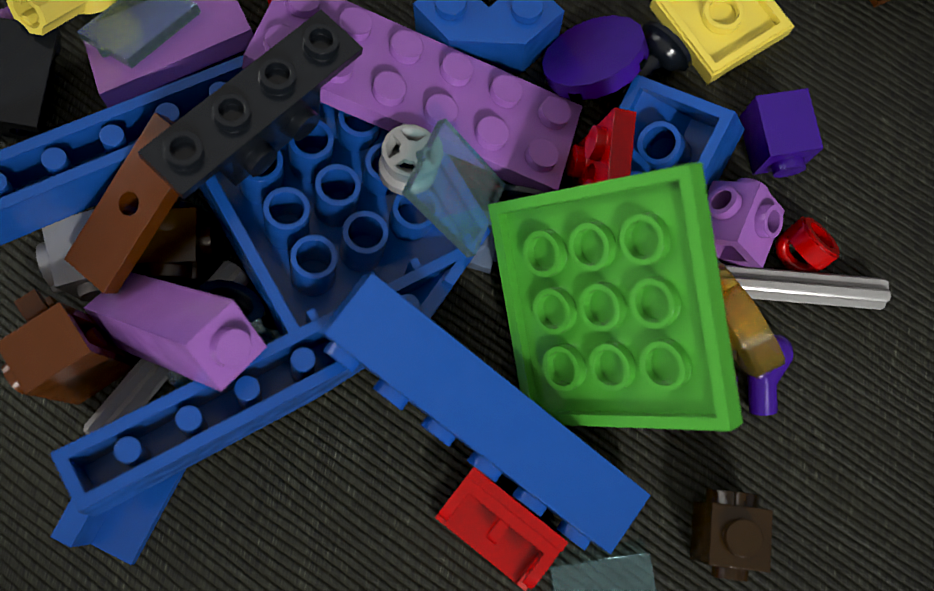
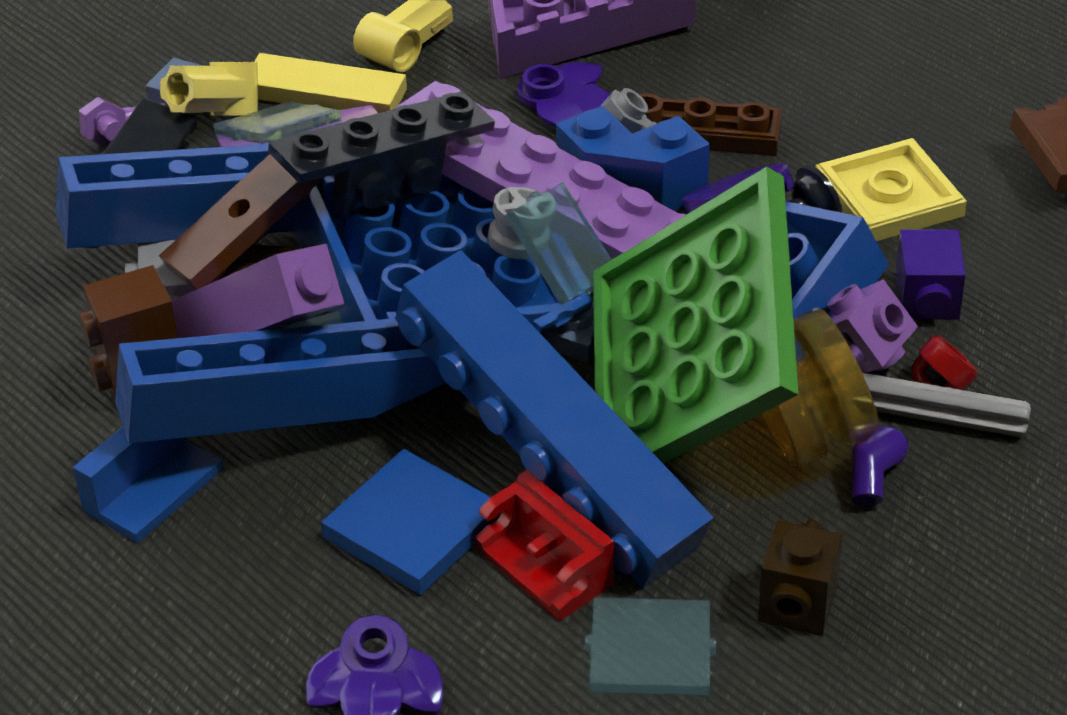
camera: 15 degrees right, 35 degrees down
(374, 506) = (409, 521): none -> blue tile

